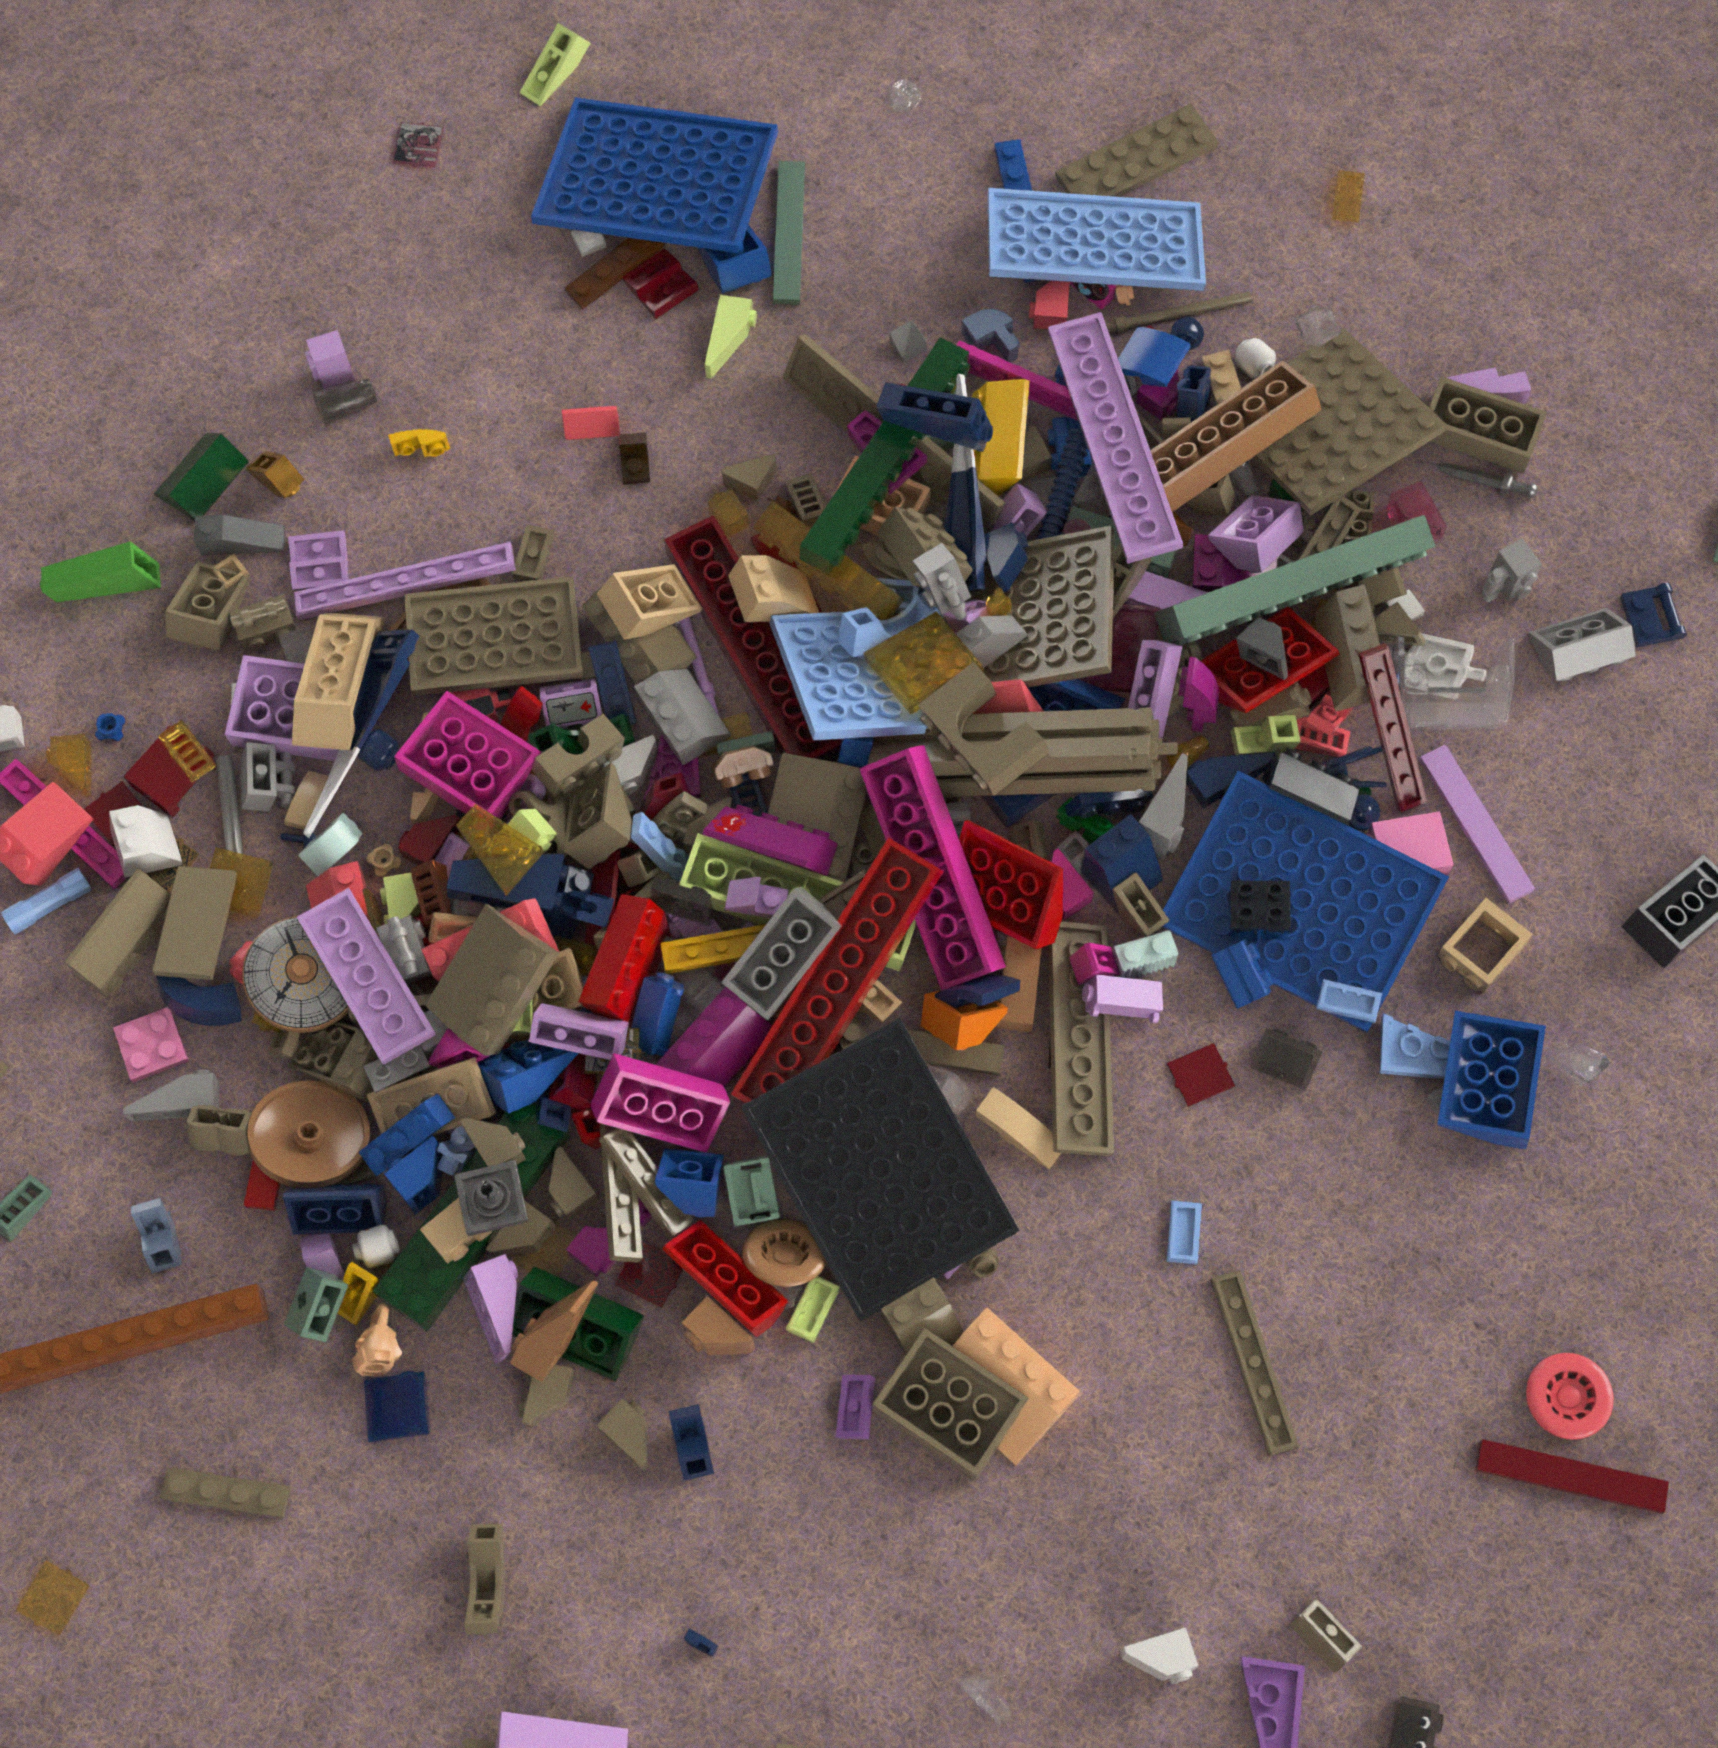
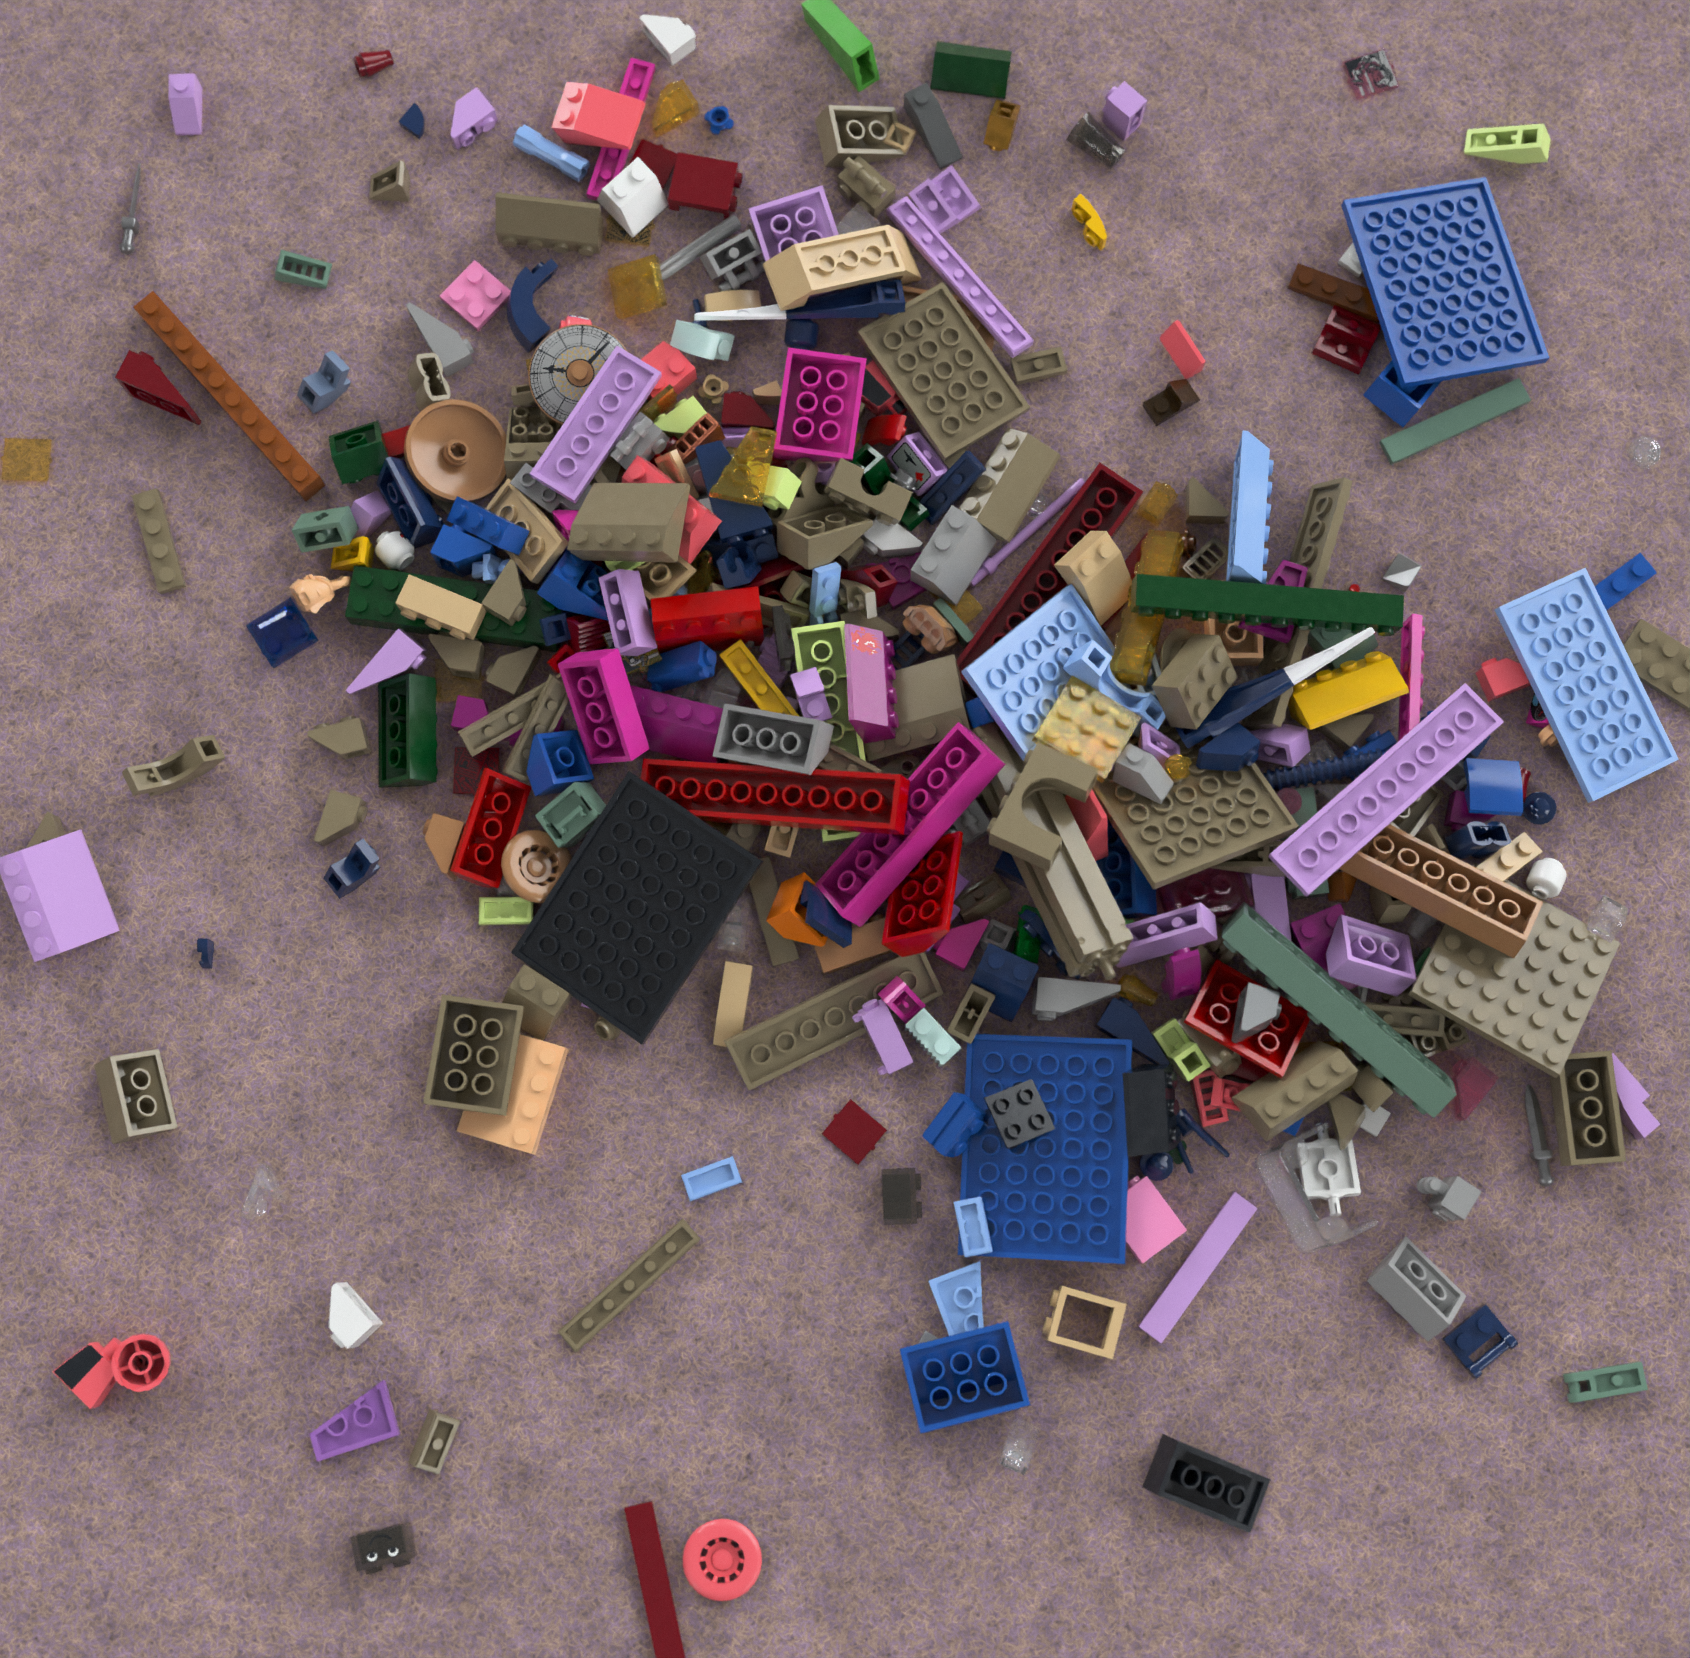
camera: 60 degrees right, 10 degrees up
(56, 1414) = (147, 383): none -> dark red slope
(175, 731) = (720, 166): clear yellow slope -> none
(195, 923) = (581, 272): dark tan tile -> none
(251, 1235) = (358, 452): none -> dark green slope
(491, 1198) = (455, 615): flat silver plate -> none
(551, 1333) = (378, 717): medium nougat slope -> none
(581, 719) = (904, 479): none -> flat silver plate
(647, 600) = (1034, 477): tan slope -> none
(729, 330) = (1329, 418): yellowish green slope -> none
(784, 436) = (1249, 512): none -> light blue slope
(855, 1407) = (441, 981): medium lavender plate -> none
(936, 414) = (1318, 627): dark blue slope -> none
(942, 581) = (1163, 708): light grey brick -> none
(990, 328) = (1452, 635): sand blue brick -> none
(1122, 324) = (1519, 747): dark tan bar -> none
(1392, 727) = (1236, 1154): tile -> none

